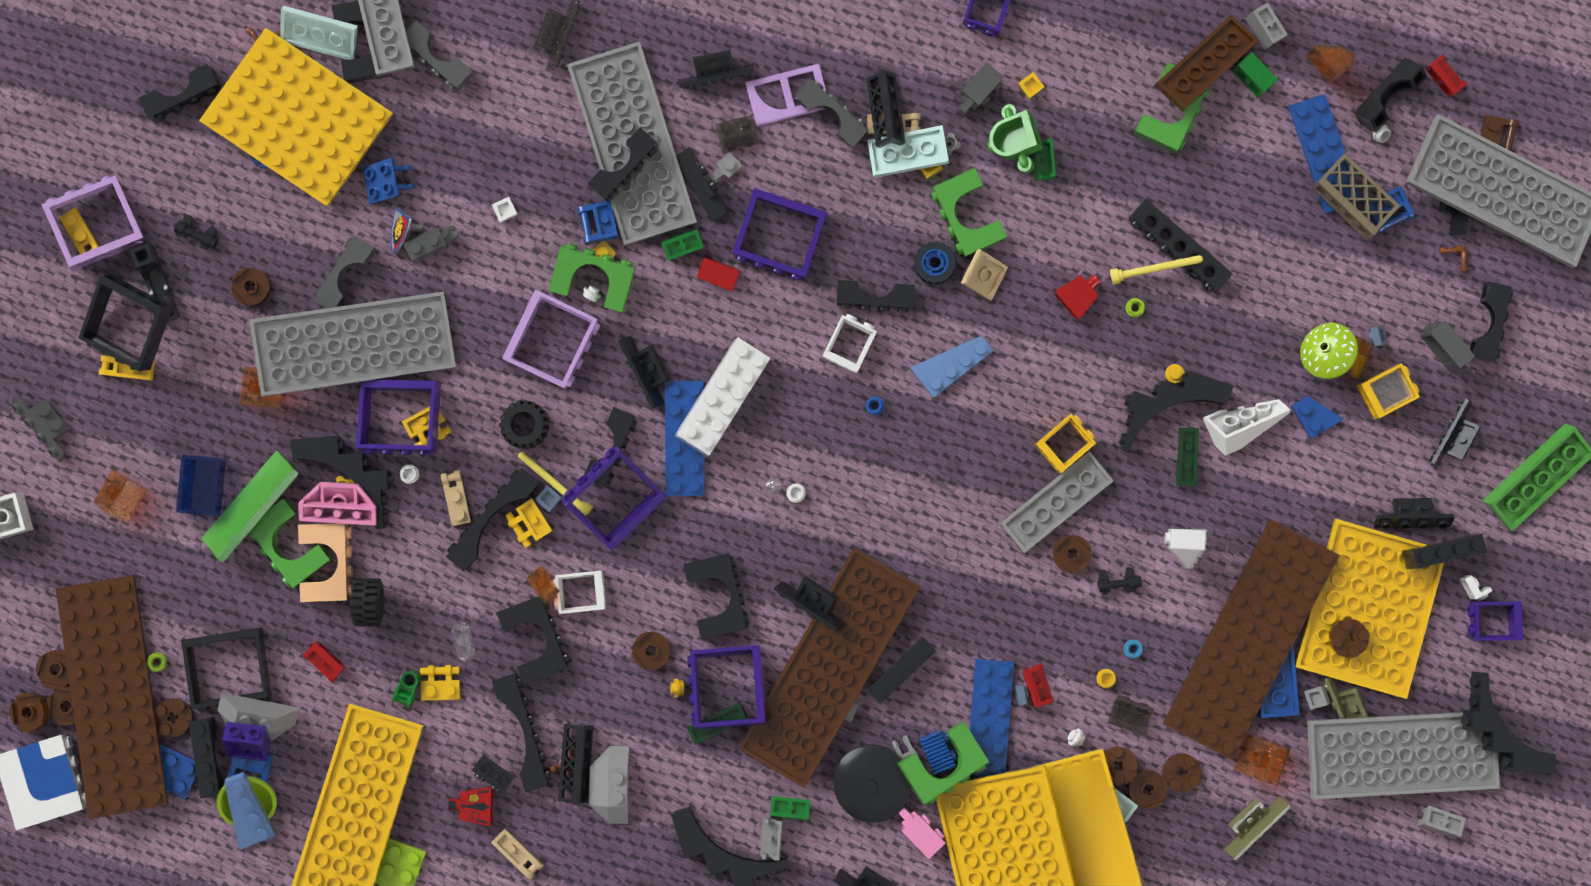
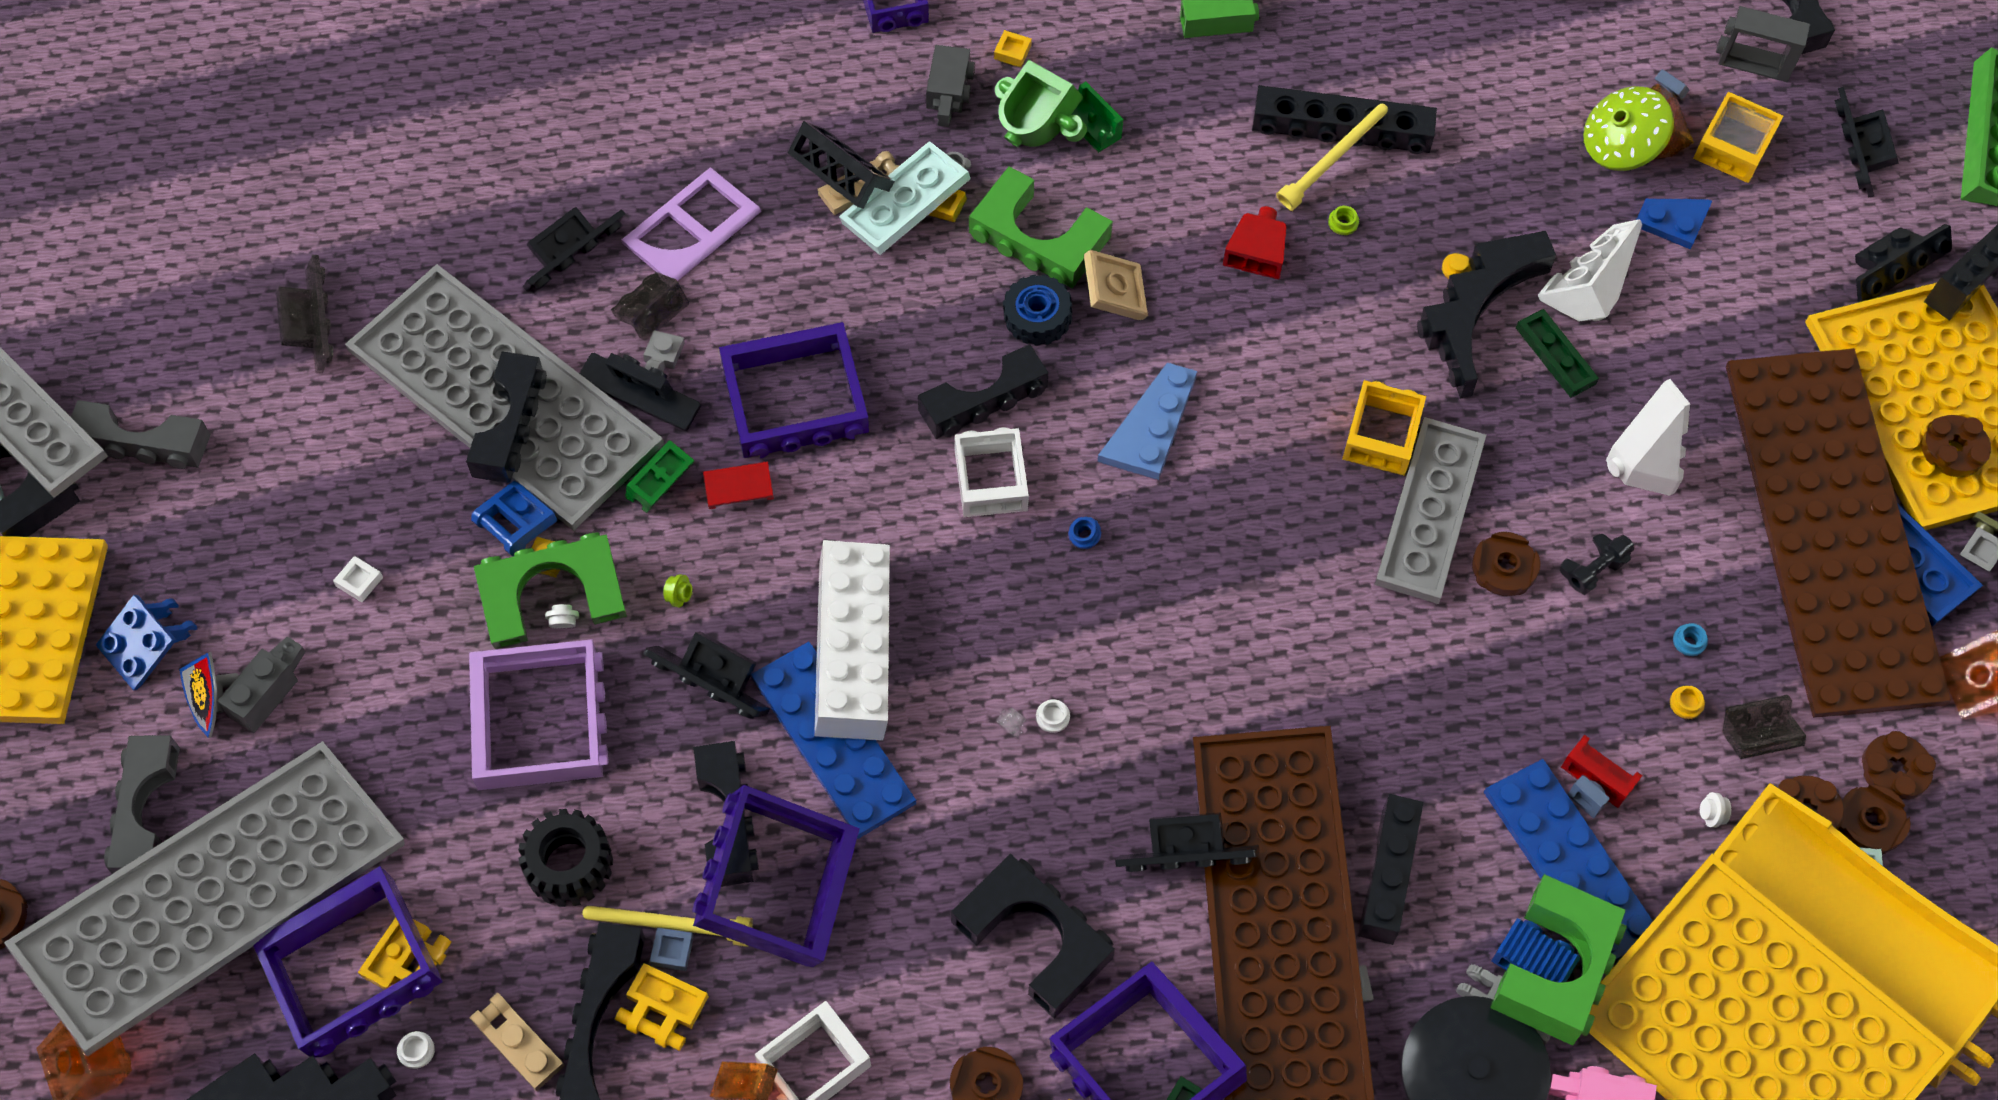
camera: 30 degrees left, 25 degrees down
(655, 313) = (677, 590): none -> lime plate
(813, 97) = (733, 199): dark grey arch -> none

